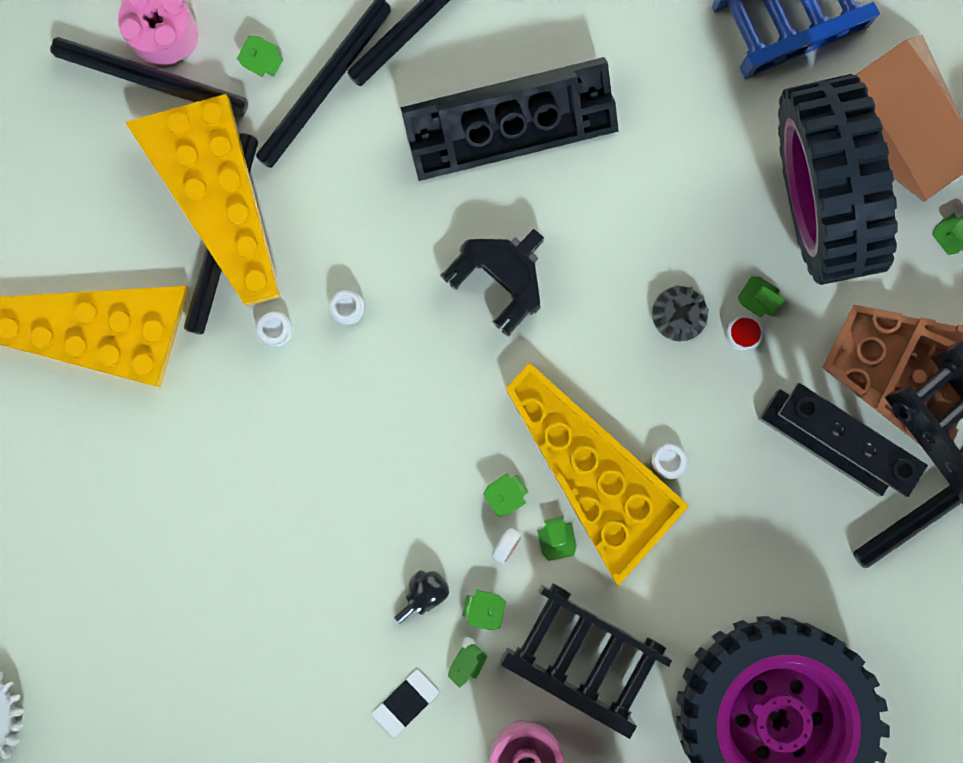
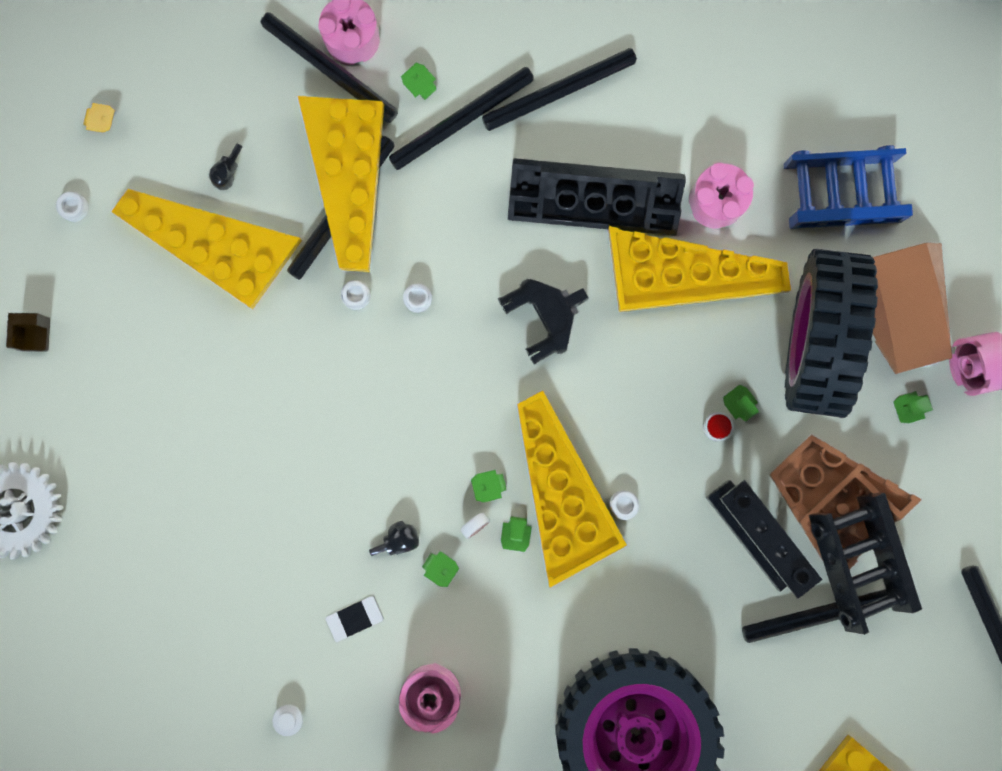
camera: 15 degrees right, 0 degrees up
(68, 240) = (222, 172): none -> black piece
(469, 662) = (415, 605): bright green piece -> none
(586, 695) = (494, 663): black fence -> none
(633, 173) = (676, 272): none -> yellow wing
(657, 49) = (731, 184): none -> bright pink brick
(679, 329) = (668, 405): dark grey gear -> none

